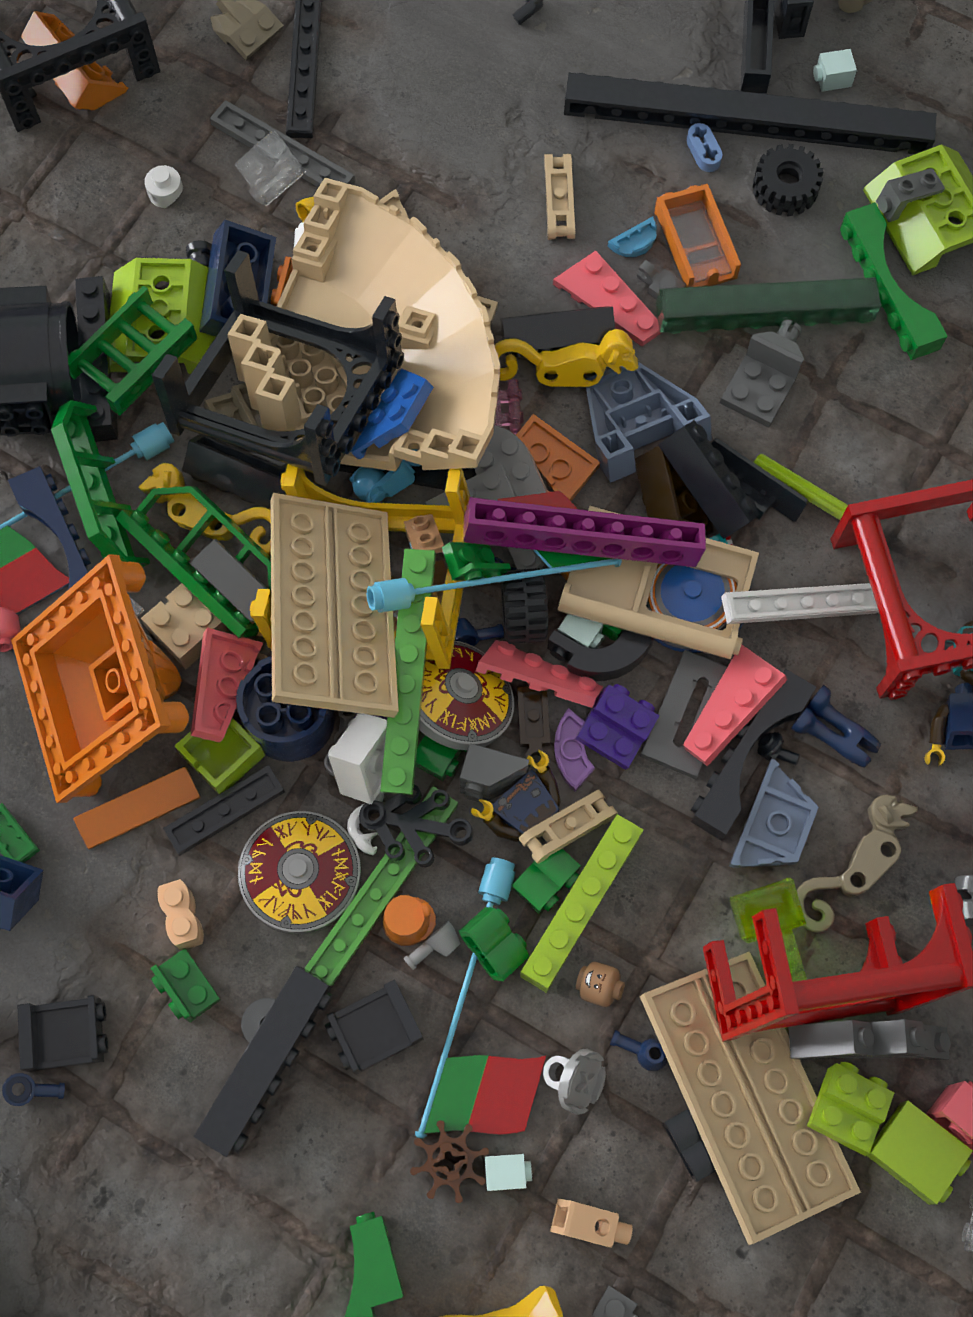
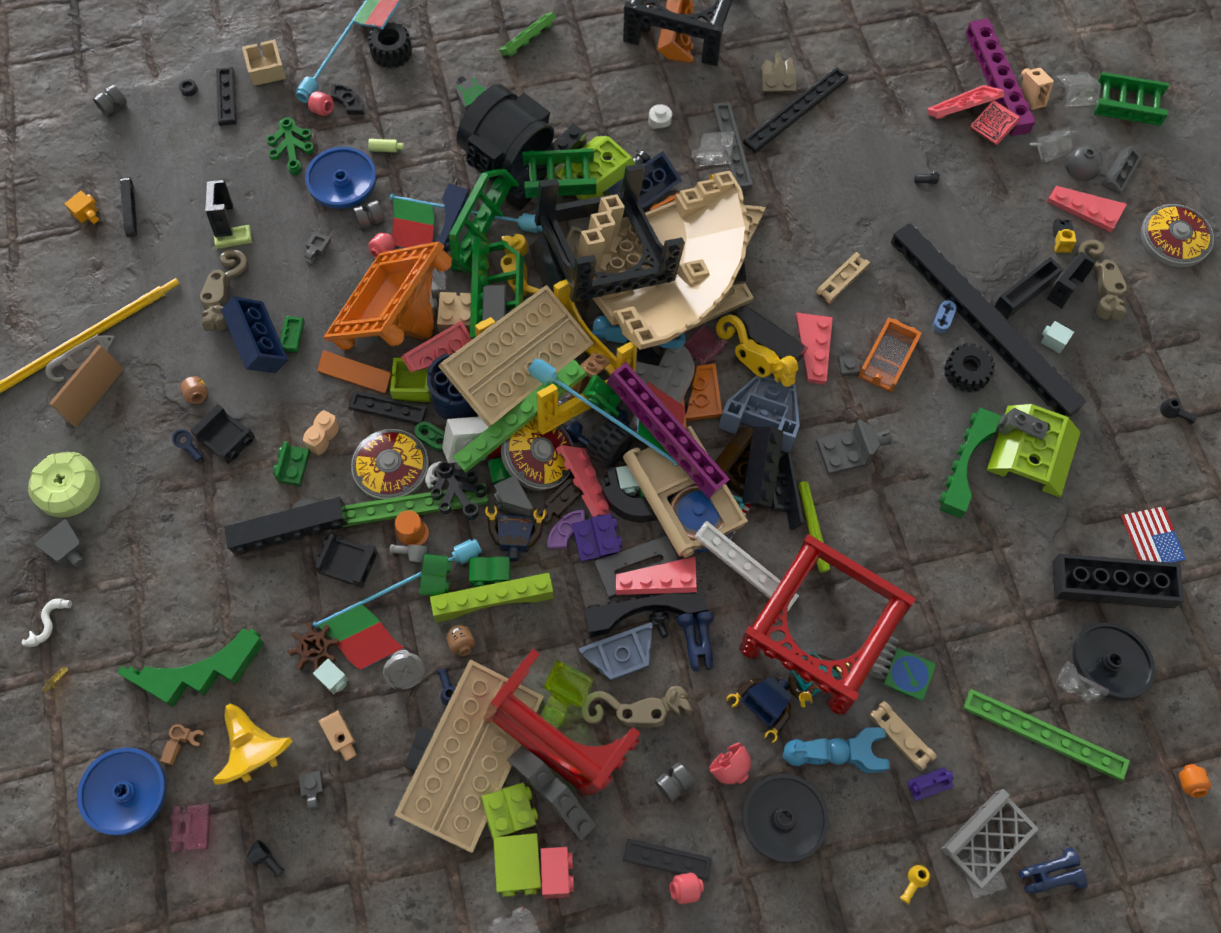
camera: 45 degrees right, 5 degrees down
(312, 788) = (432, 438): none -> green plate
(395, 411) = (636, 298): blue wing -> none
(568, 825) = (522, 556): tan plate -> none
(635, 240) = (858, 330): dark azure plate -> none
(767, 304) = (889, 415): clear green brick -> none

